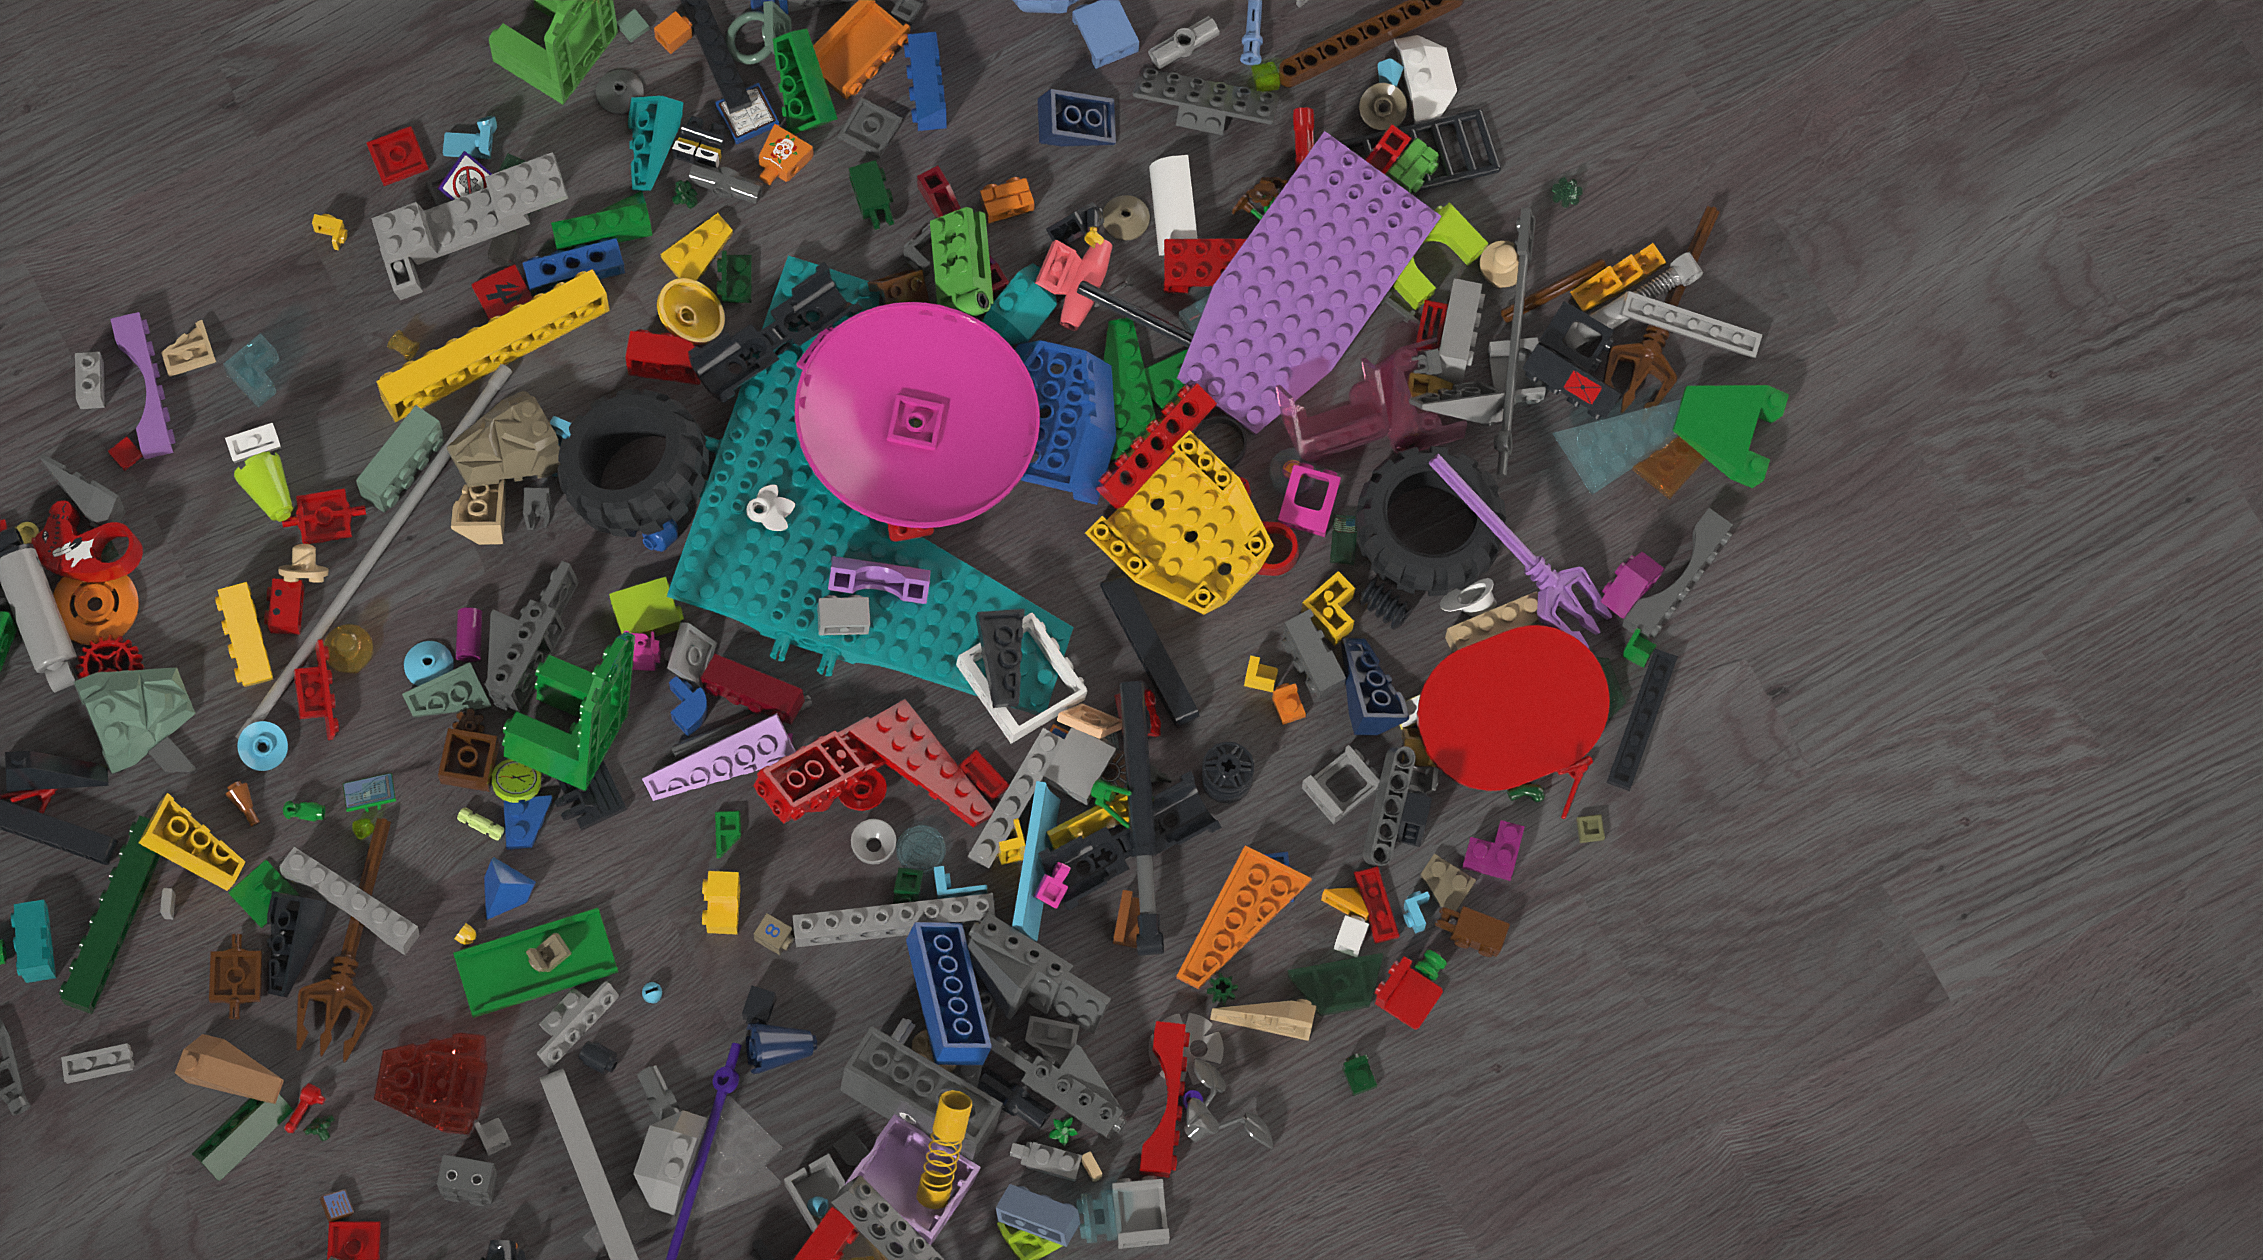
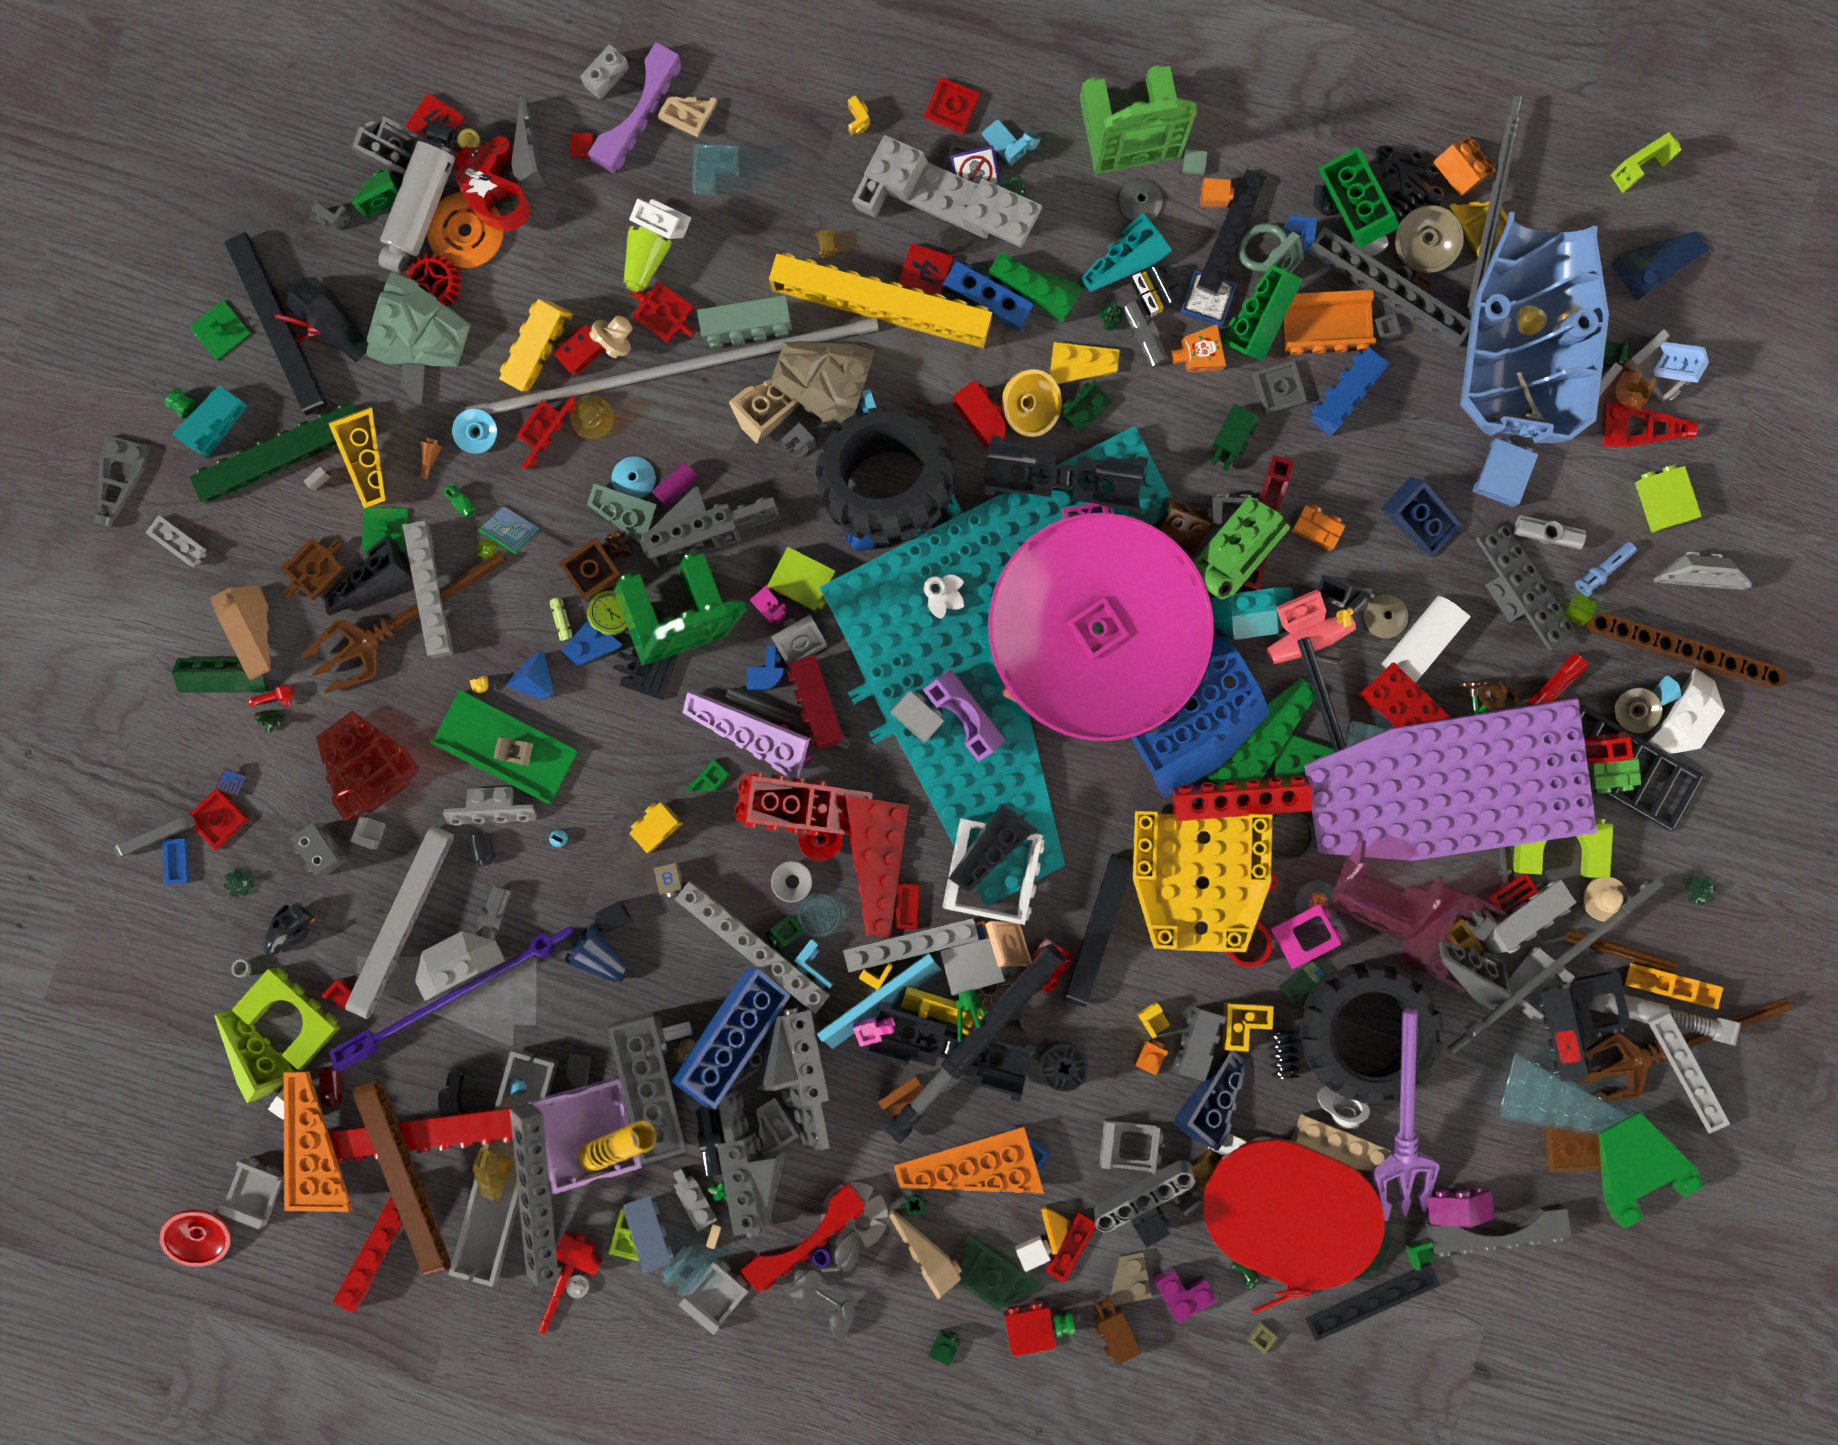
camera: 55 degrees right, 15 degrees up
(1413, 915) = (1086, 1280): medium azure bracket -> none

